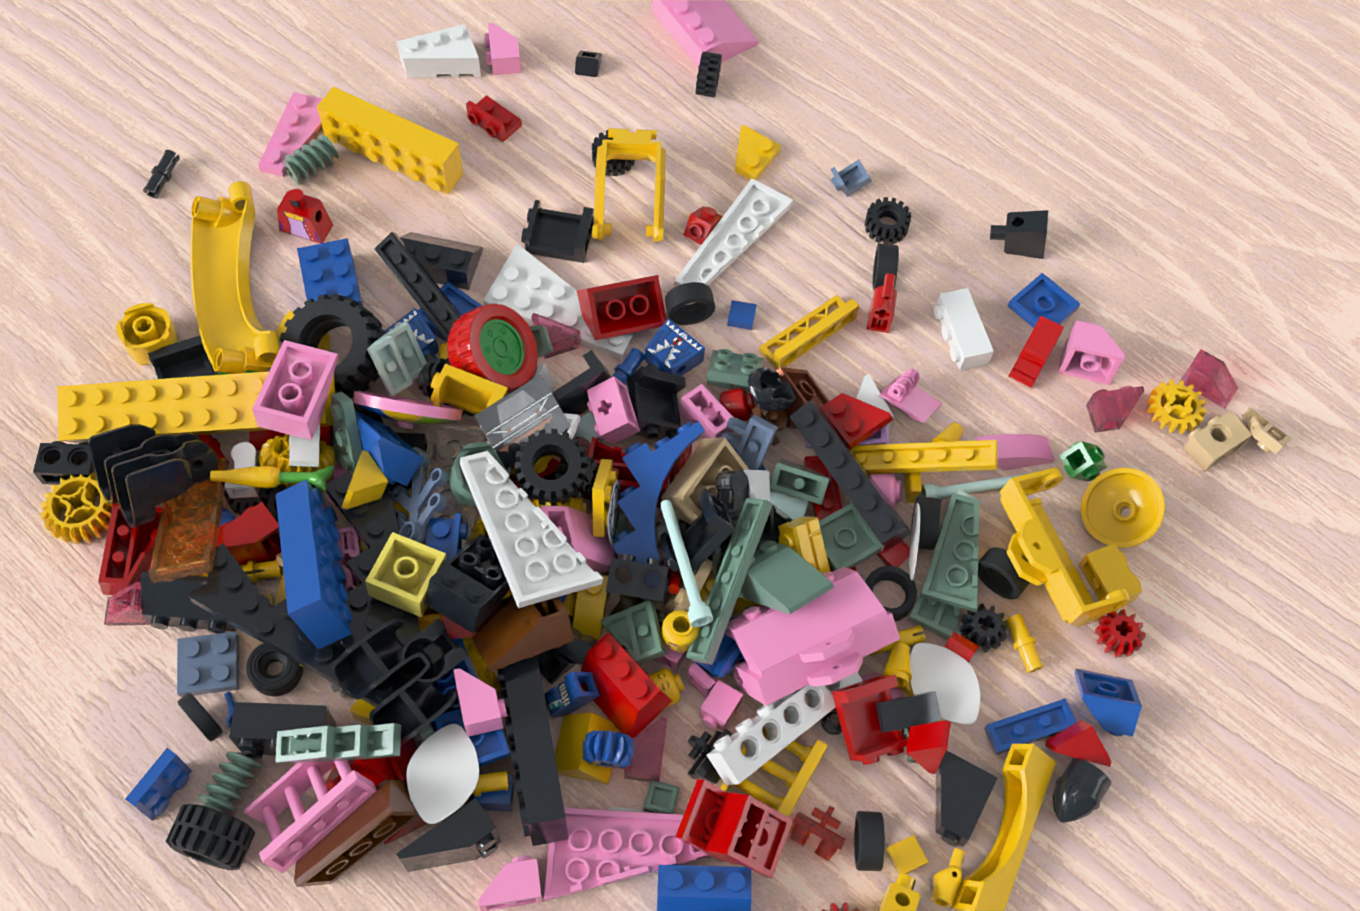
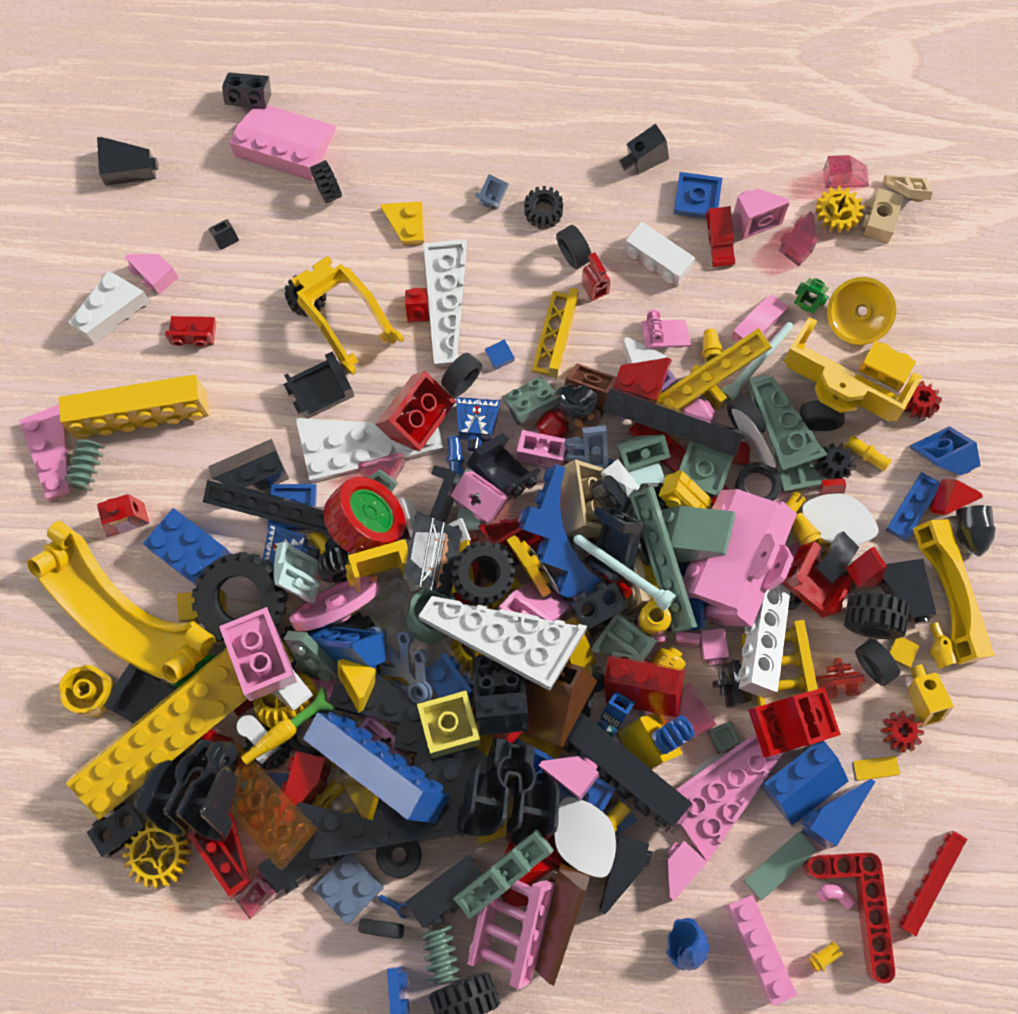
camera: 30 degrees left, 10 degrees up
(903, 794) = (877, 615): none -> black tyre

